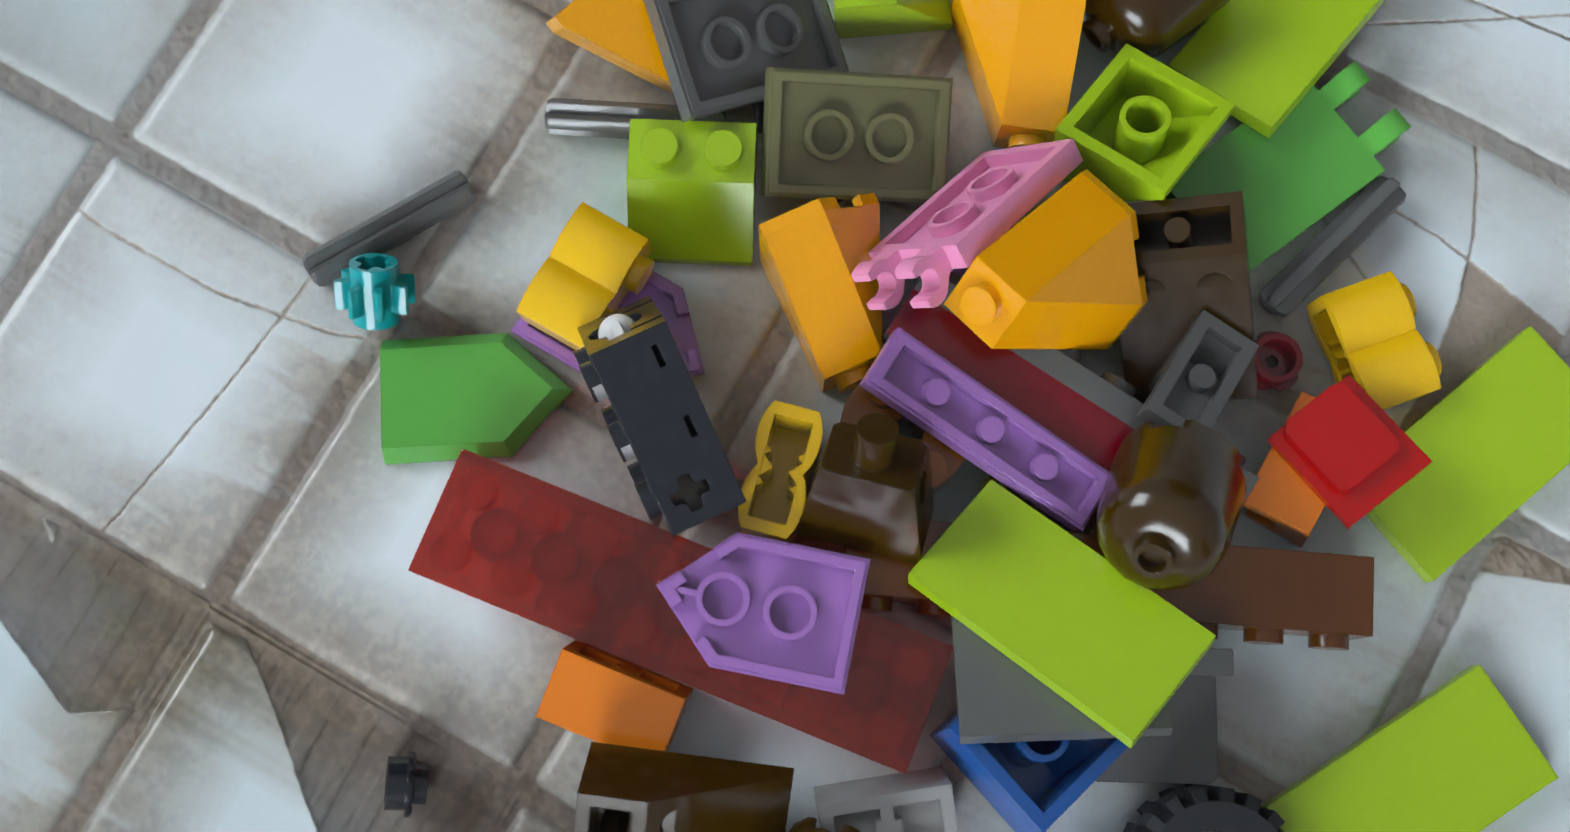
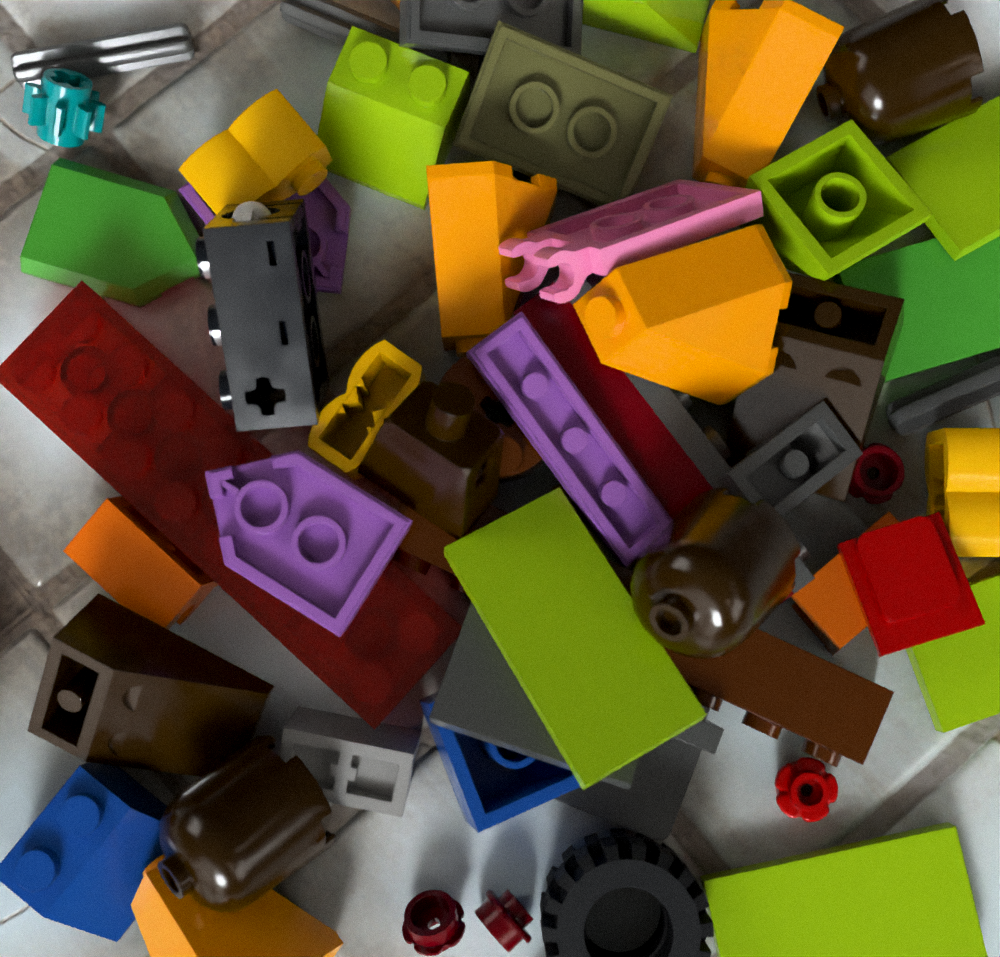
camera: 20 degrees right, 5 degrees up
(1310, 686) = (788, 789): none -> red plate

